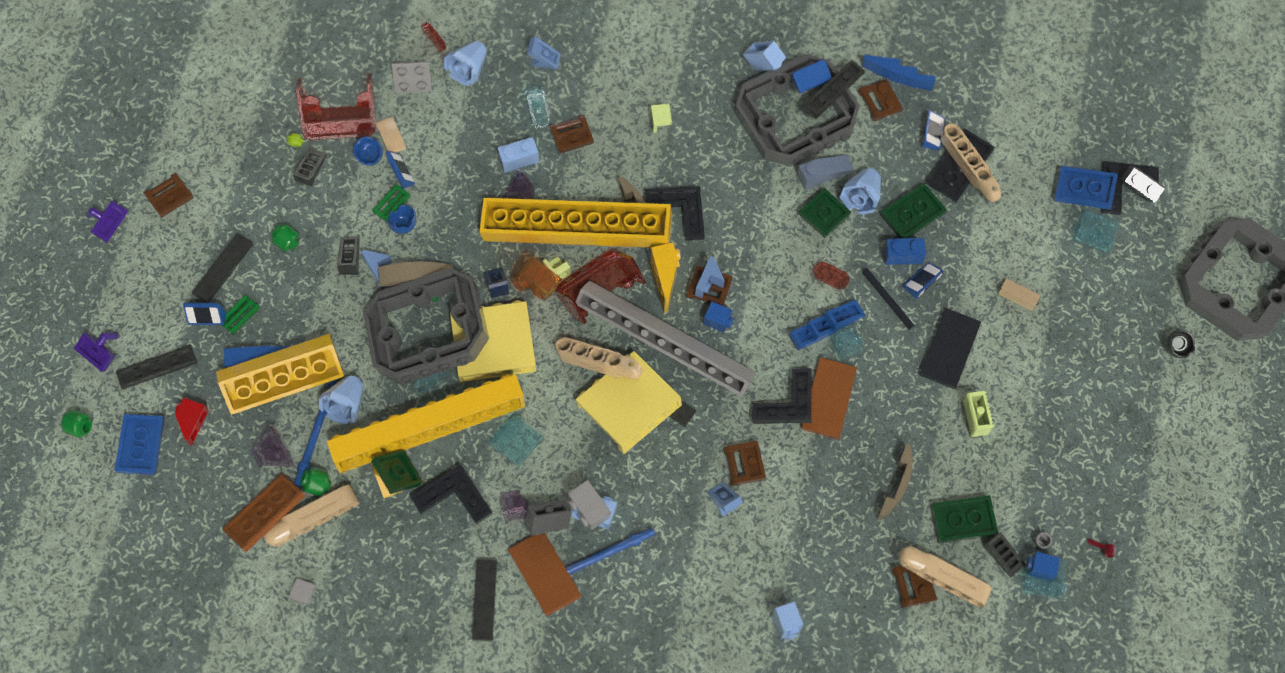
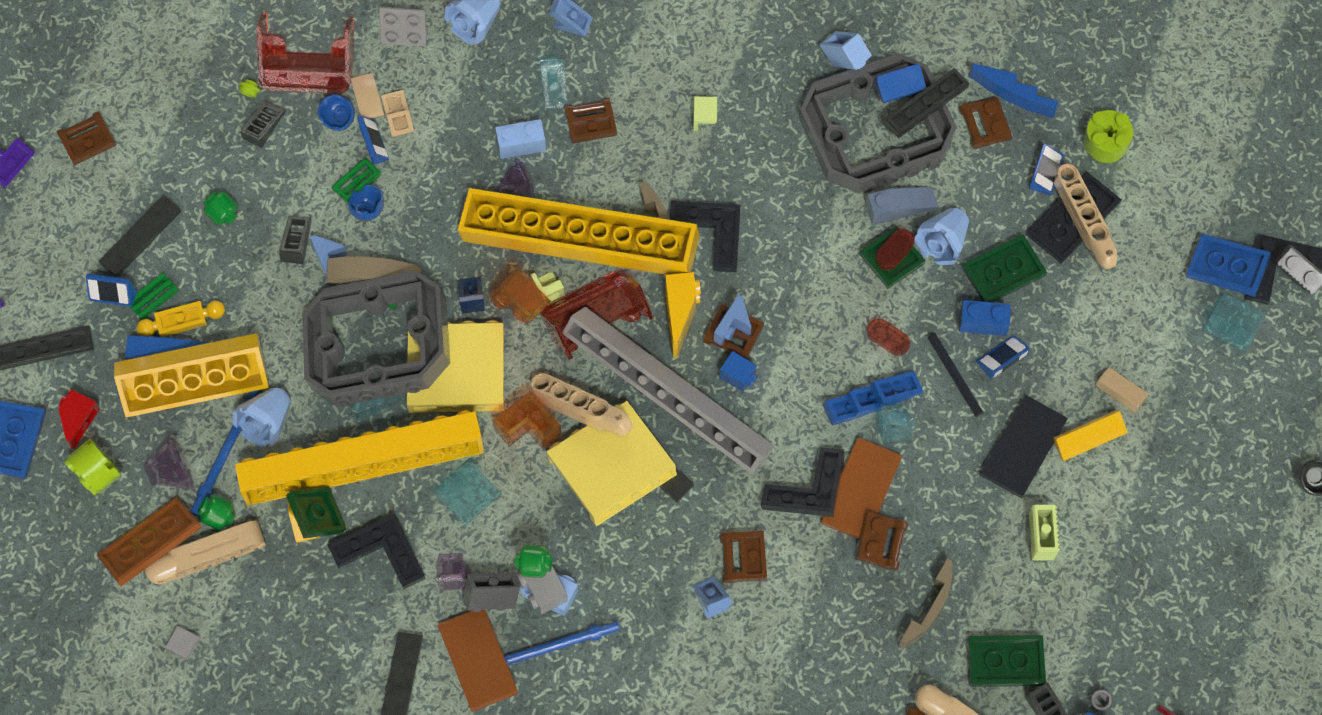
camera: 10 degrees right, 0 degrees up
(209, 458) = (92, 467): none -> lime brick
(265, 330) = (180, 319): none -> yellow plate
(417, 146) = (397, 113): none -> tan slope
(557, 373) = (525, 417): none -> clear orange brick
(581, 488) = (534, 561): none -> green head
(826, 206) = (895, 249): none -> clear red tile
(845, 436) = (873, 540): none -> reddish brown plate
(977, 99) = (1108, 136): none -> lime brick
(1000, 333) = (1090, 435): none -> yellow tile

